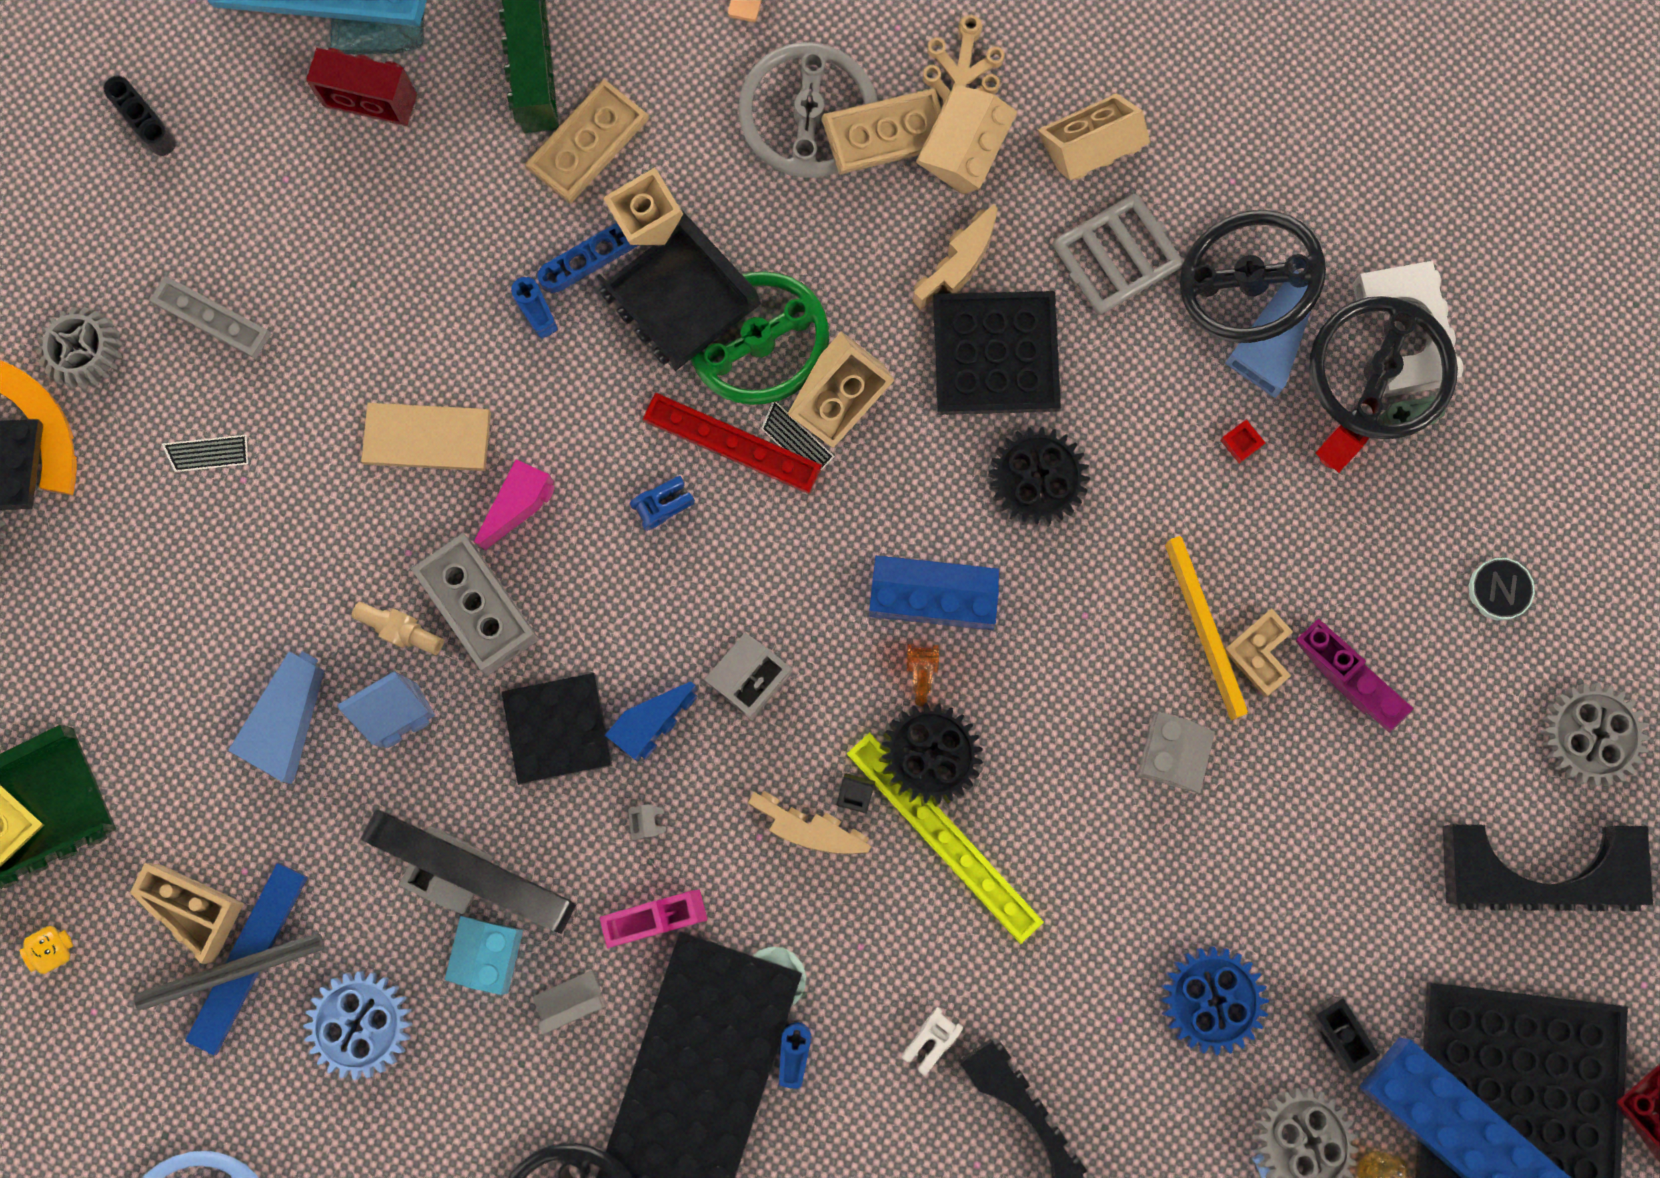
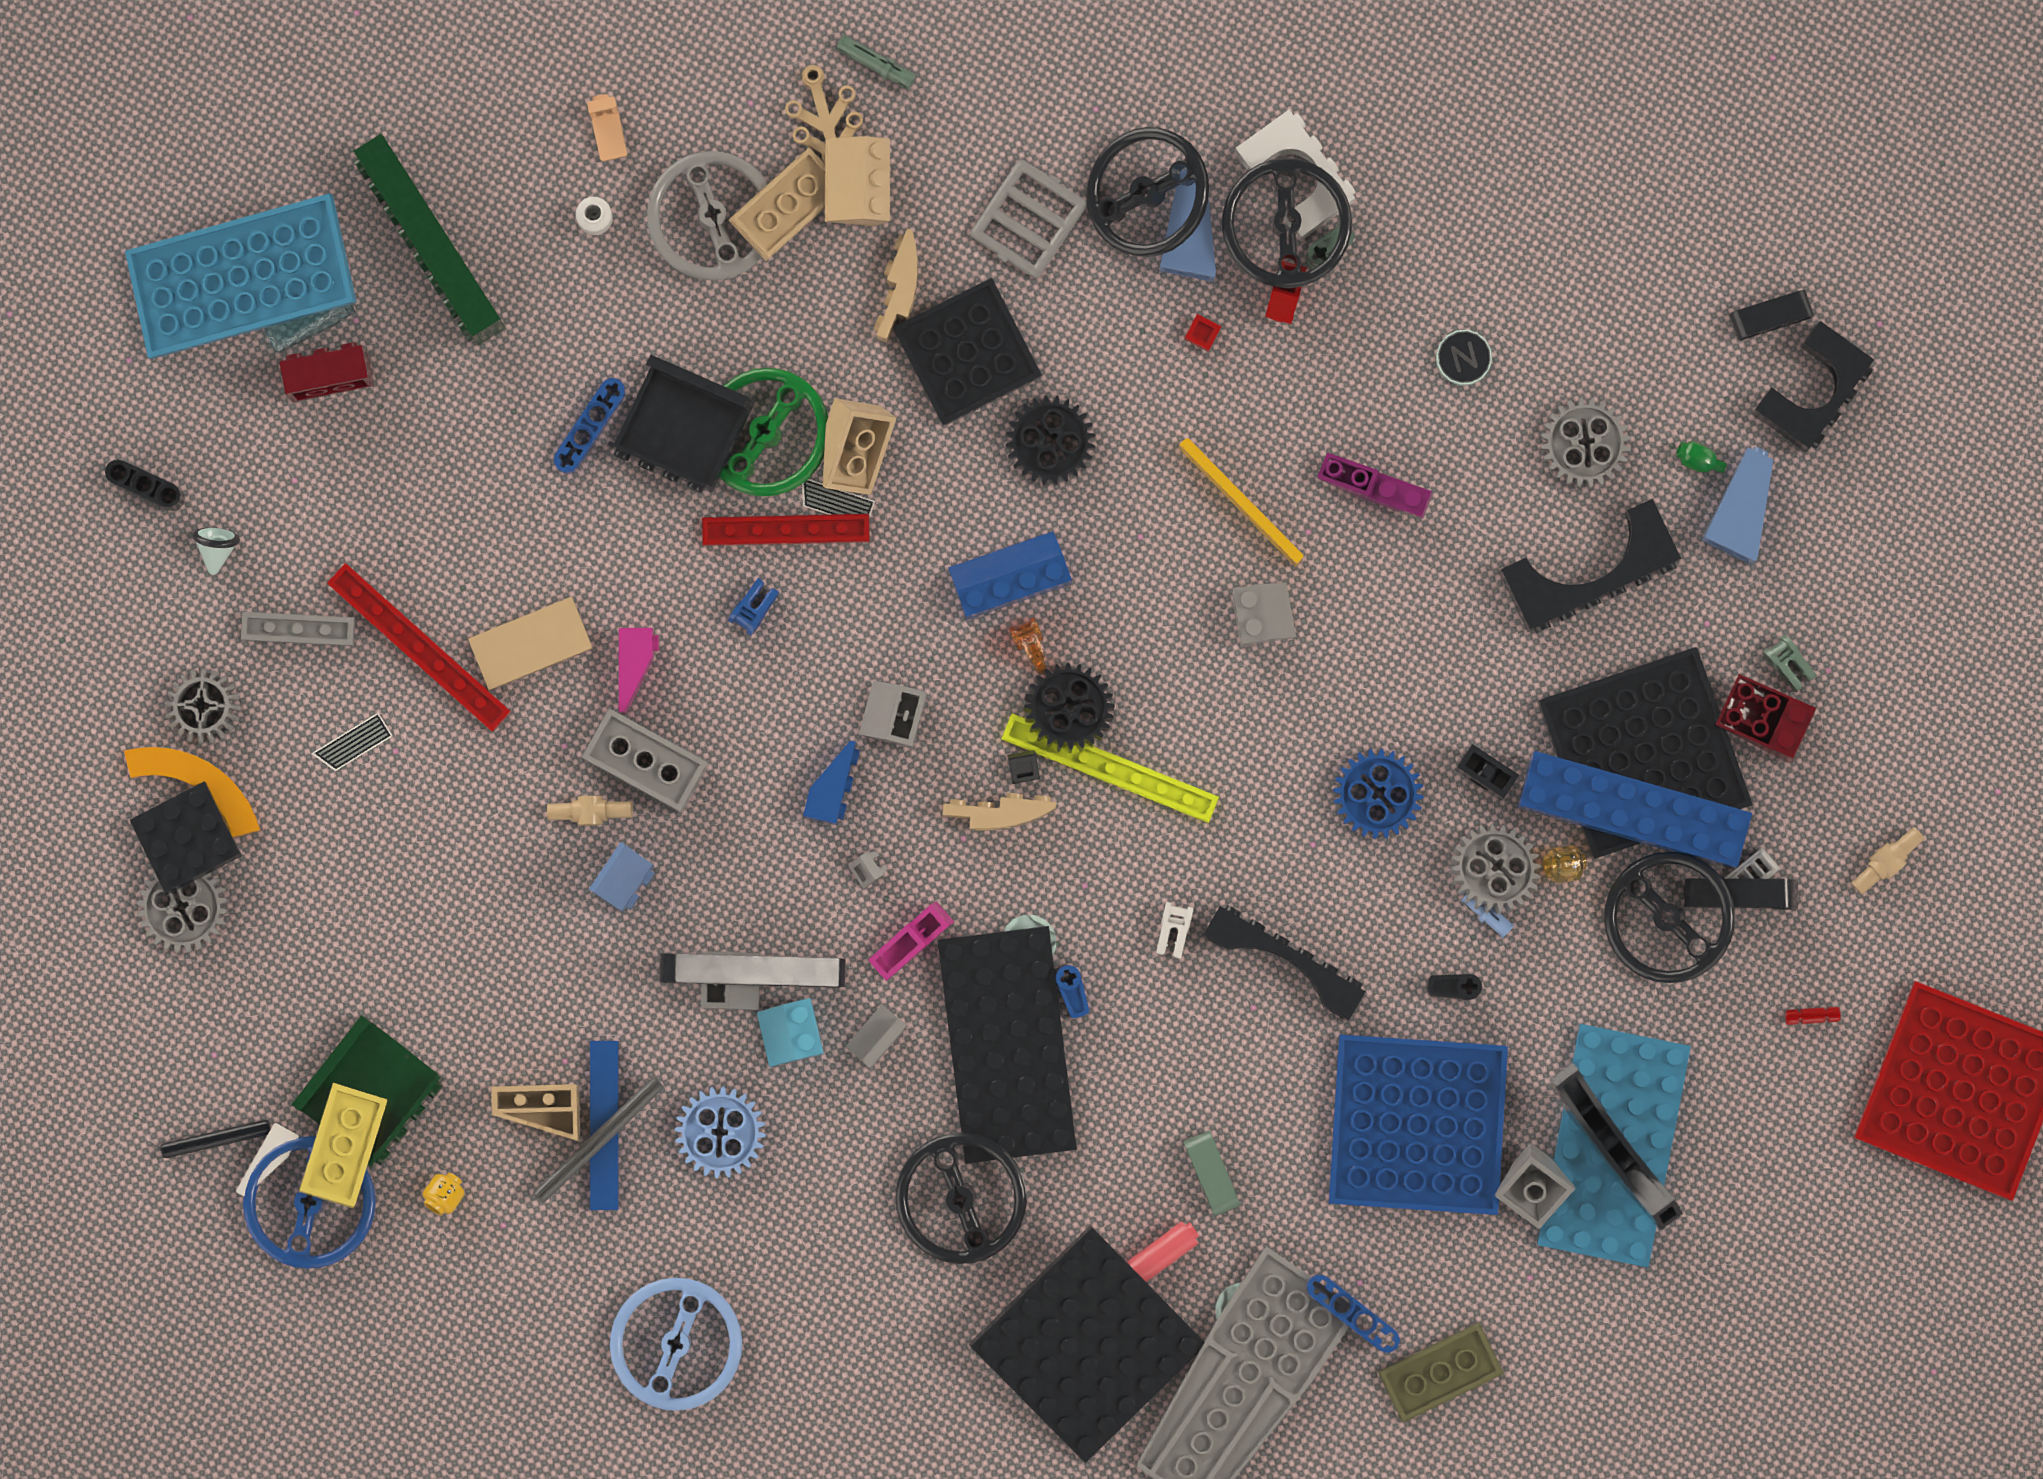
camera: 30 degrees left, 5 degrees up
(173, 202) = (215, 546): none -> light aqua hat
(280, 720) = (534, 930): medium blue slope -> none
(316, 390) = (419, 647): none -> red plate
(534, 307) = (569, 494): blue piece -> none
(556, 728) = (759, 829): black plate -> none
(587, 141) = (536, 328): tan tile -> none
(645, 209) = (619, 368): tan slope -> none
(694, 58) = (602, 220): none -> white head
(1045, 50) = (885, 67): none -> sand green pin
(1095, 136) = (962, 126): tan slope -> none
(1253, 655) = (1287, 503): tan plate -> none

